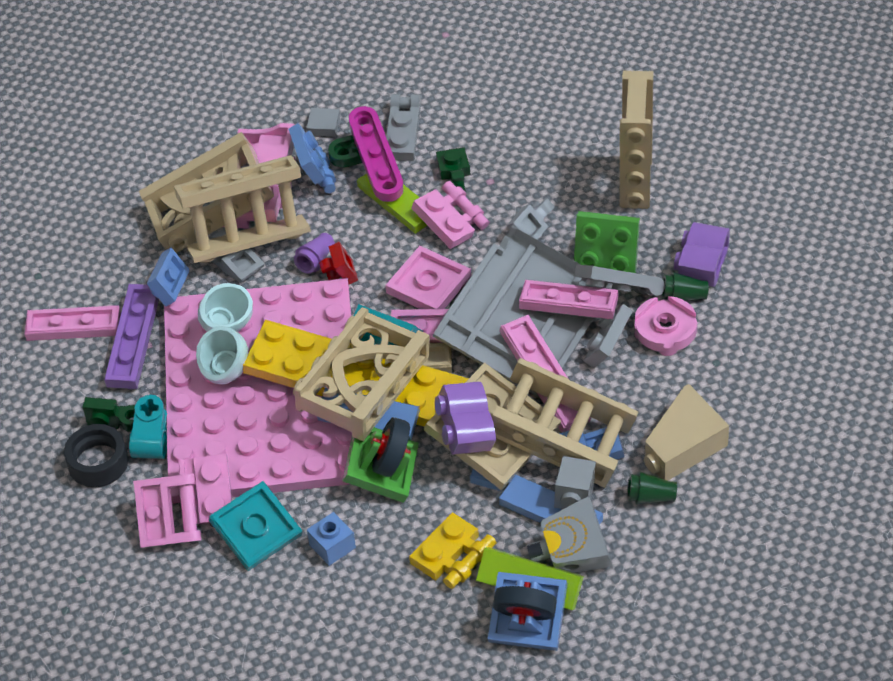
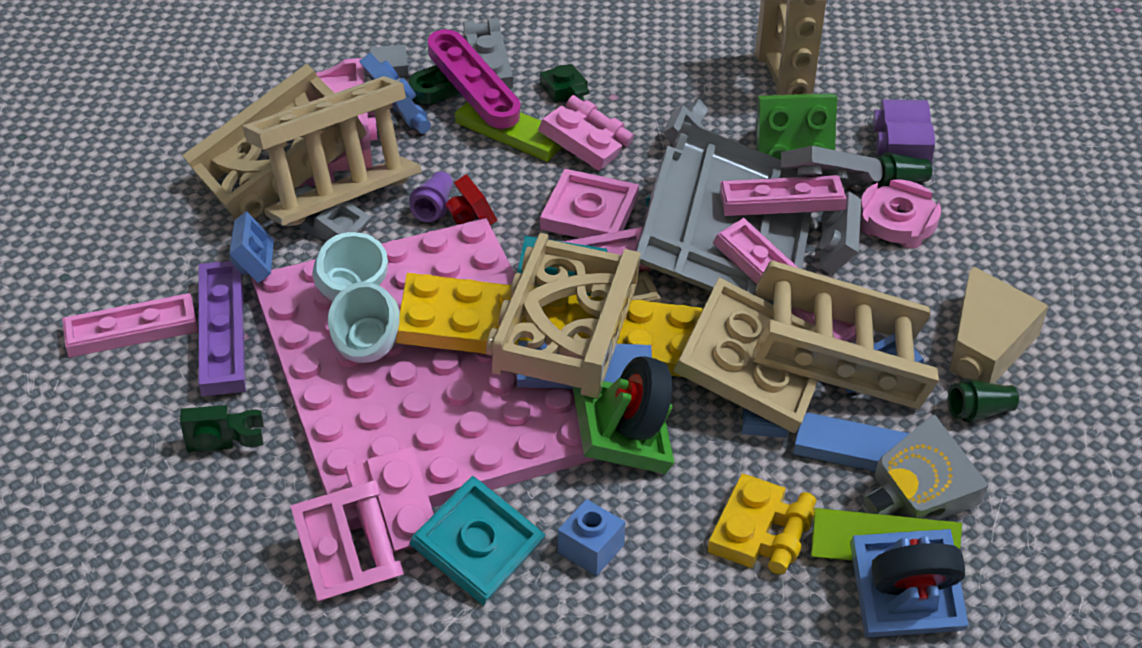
camera: 20 degrees left, 5 degrees down
(96, 436) = (210, 459): black tyre -> none
(149, 429) = (284, 441): teal piece -> none
(465, 417) = (732, 343): medium lavender brick -> none
(574, 481) = (893, 405): light grey brick -> none

